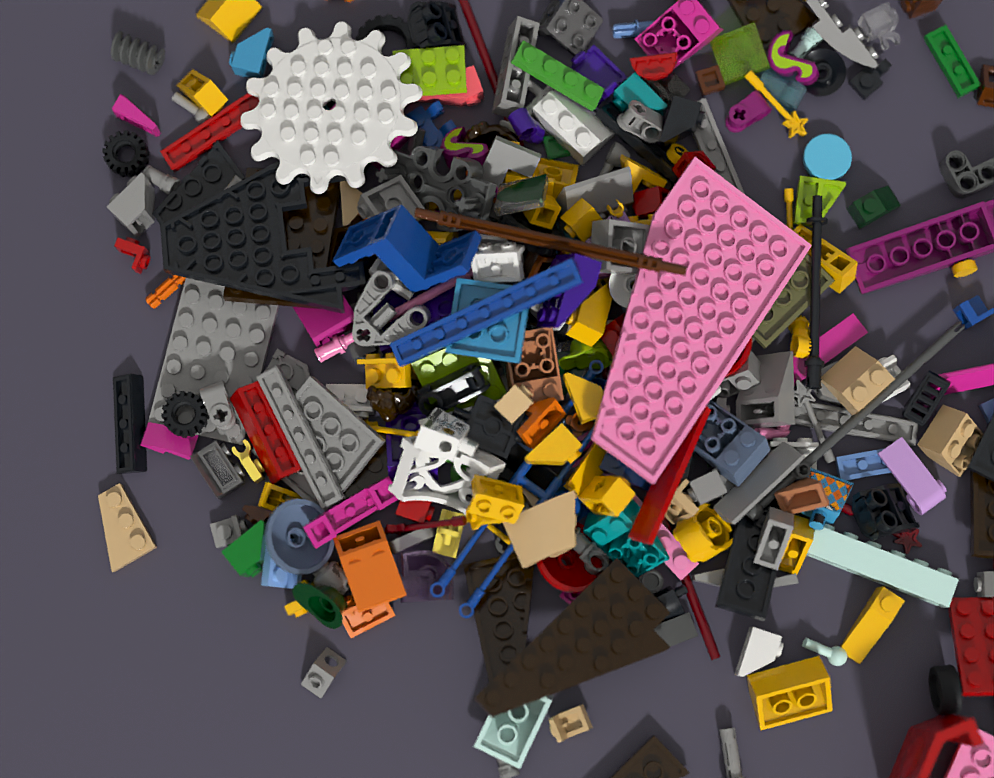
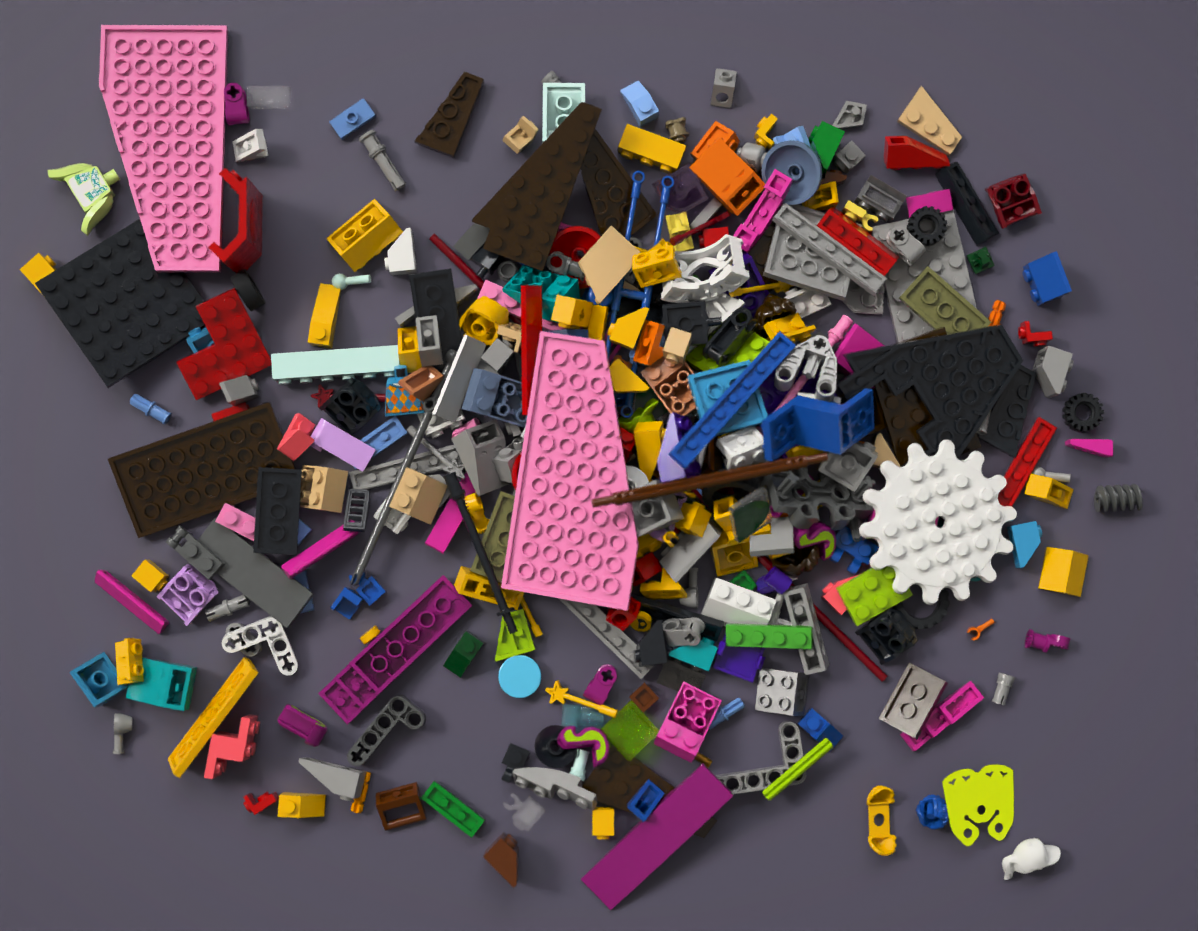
camera: 155 degrees right, 5 degrees up
(80, 403) = (1017, 201): none -> dark red slope
(90, 301) = (1046, 279): none -> blue slope
(147, 357) = (980, 260): none -> dark green brick
(163, 503) = (910, 153): none -> red slope
(165, 182) = (1038, 404): light grey pin -> none
(203, 575) = (851, 115): none -> light grey piece
(212, 323) = (941, 304): none -> olive plate
(322, 602) = (747, 133): dark green piece -> none
(397, 646) = (677, 129): none -> dark tan brick
(423, 698) = (640, 103): none -> light blue slope
(435, 639) = (651, 149): none -> yellow brick
(445, 436) = (718, 294): white torso -> none
(654, 66) = (694, 681): red plate -> none
(945, 314) = (369, 589): none -> blue plate
(959, 504) = (297, 437): none -> coral slope

